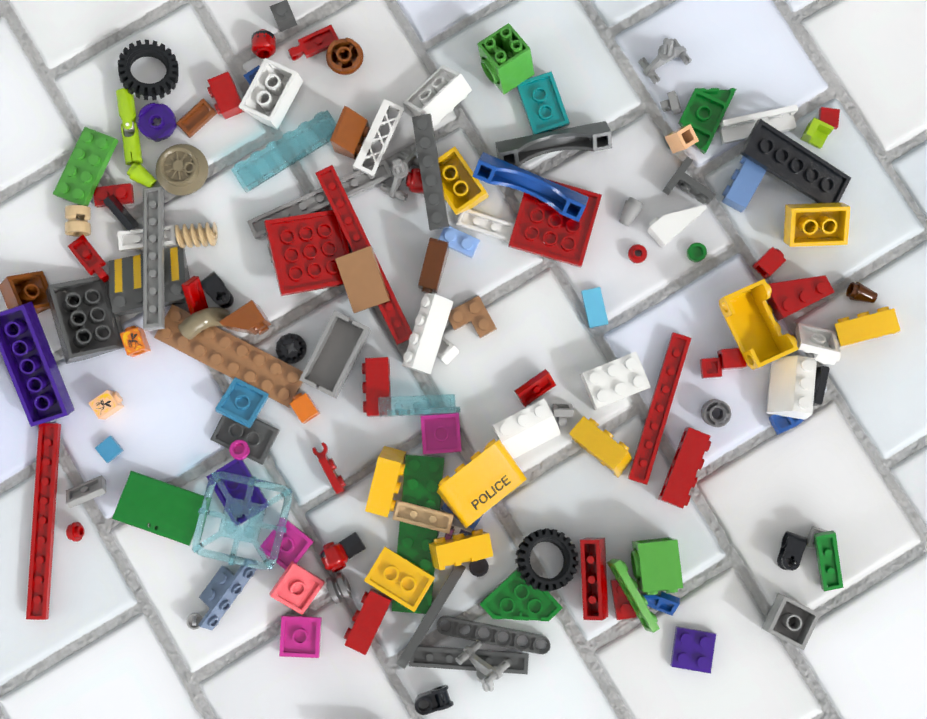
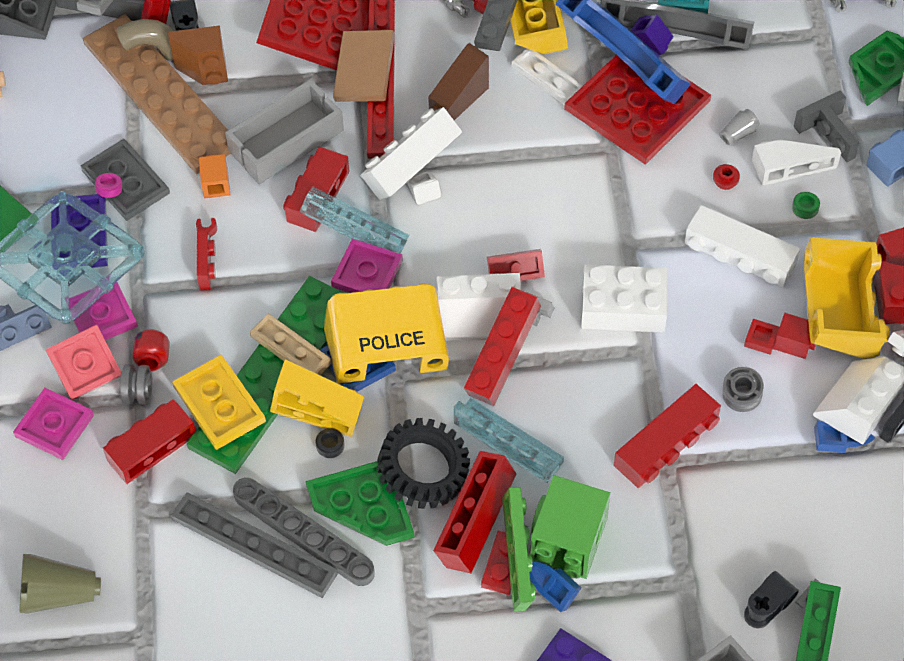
camera: 25 degrees right, 25 degrees down
(135, 341) = (58, 33): orange brick -> none
(242, 402) = (143, 139): dark azure plate -> none
(293, 357) = (230, 119): black gear -> none
(352, 545) = (182, 350): black tile -> none
(385, 481) = (265, 288): yellow wedge -> none
(430, 616) = (233, 464): dark grey beam -> none
(434, 699) = (183, 574): black piece -> none
(460, 241) = (507, 82): light blue plate -> none
(473, 312) = (480, 159): medium nougat plate -> none
(485, 673) = (268, 549): light grey axle -> none
(542, 164) = (653, 33): none -> dark purple brick
(559, 458) = (502, 346): none -> red brick
(587, 513) = (507, 439): none -> clear light blue fence
(594, 307) = (640, 213): medium azure tile -> none
(601, 445) = (570, 364): yellow wedge -> none
(659, 408) = (667, 356): red plate -> none
(671, 306) = (742, 246): none -> white brick
(672, 103) = (849, 36): light grey tile -> none
(681, 138) = (842, 72): light nougat brick -> none

